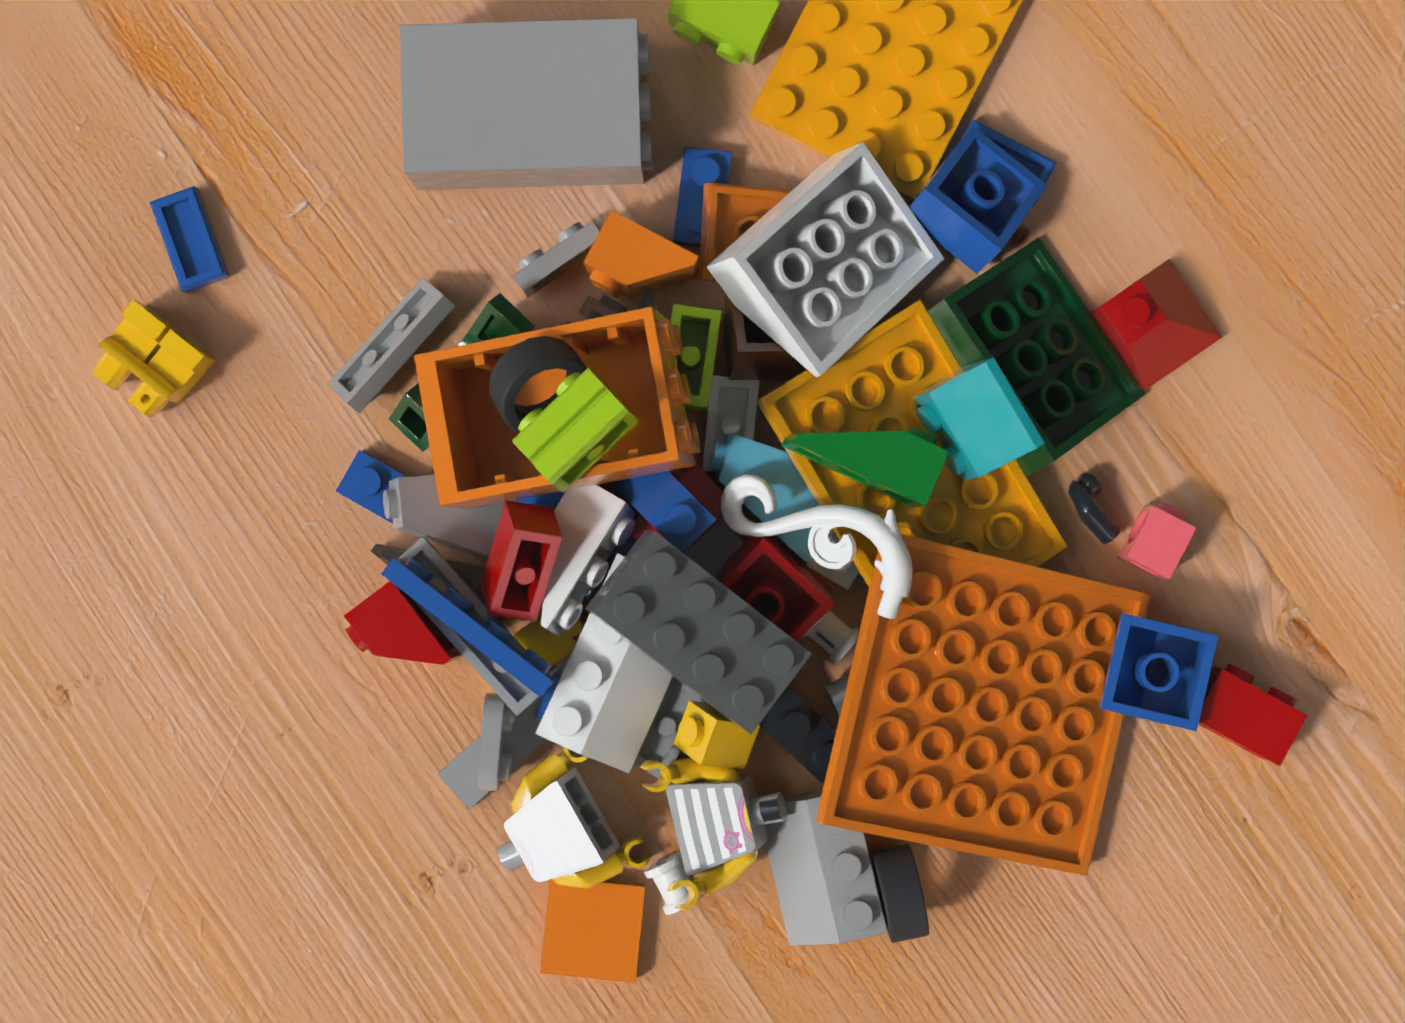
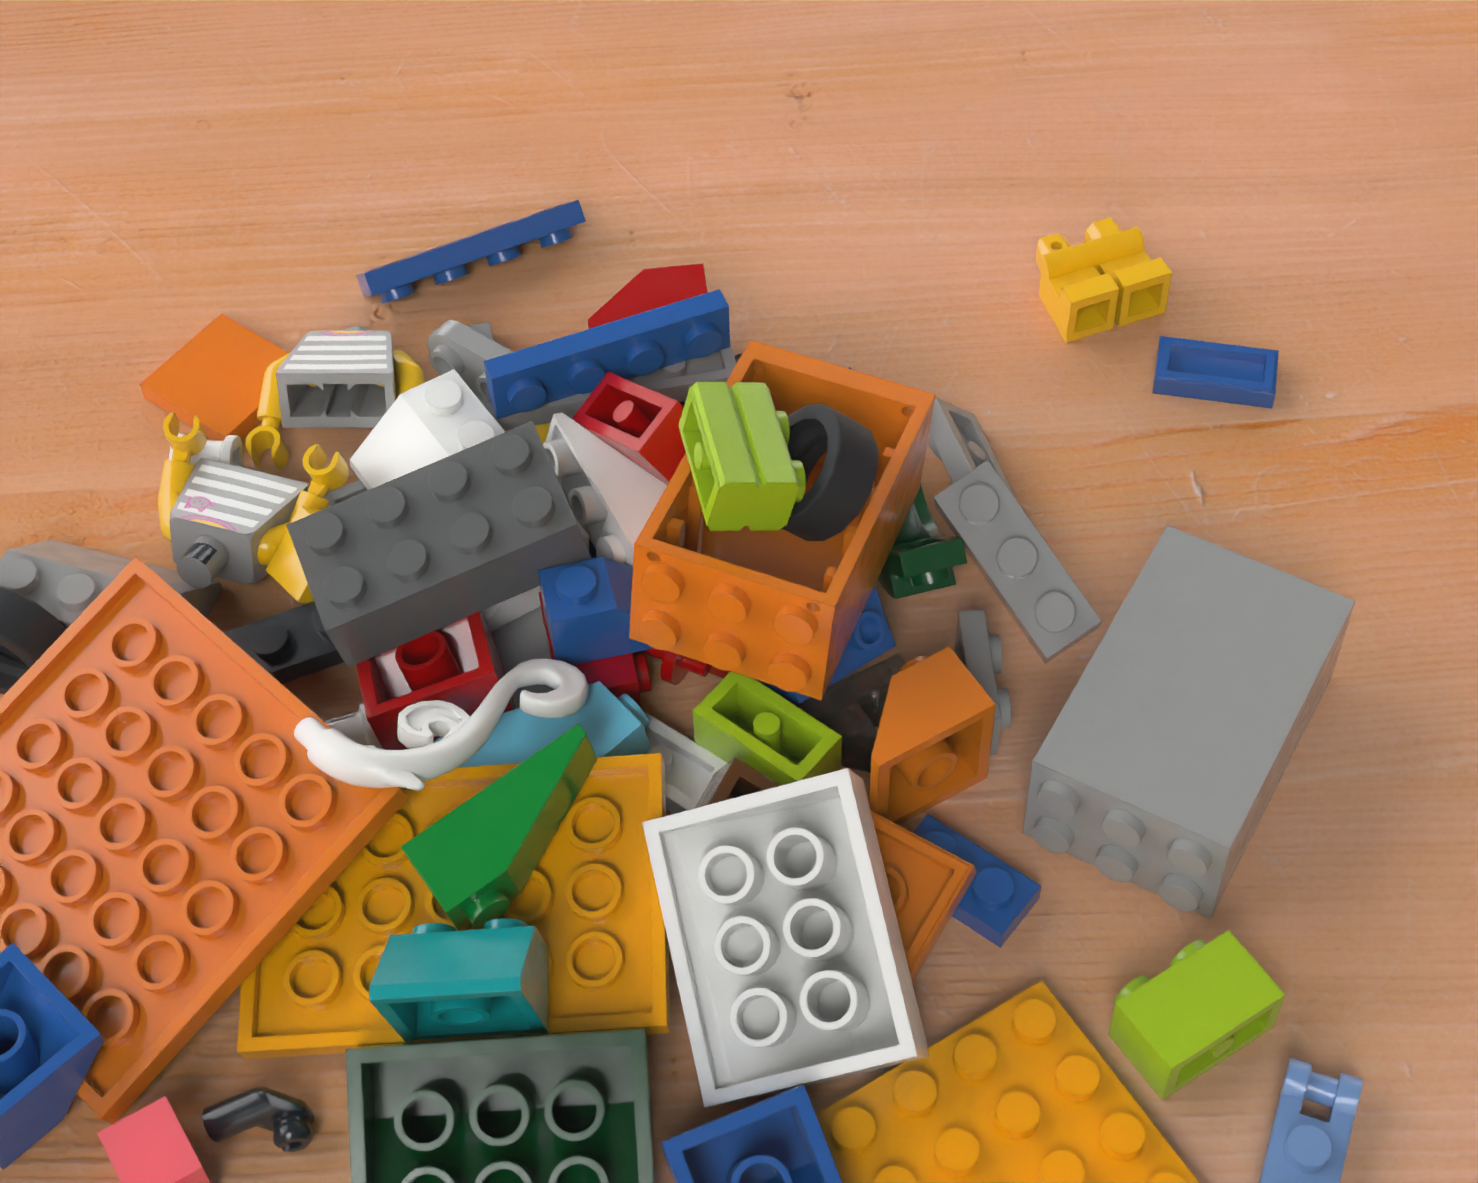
camera: 120 degrees right, 35 degrees down
(378, 831) = (449, 260): none -> blue plate
(470, 269) = (1017, 562): none -> light grey brick

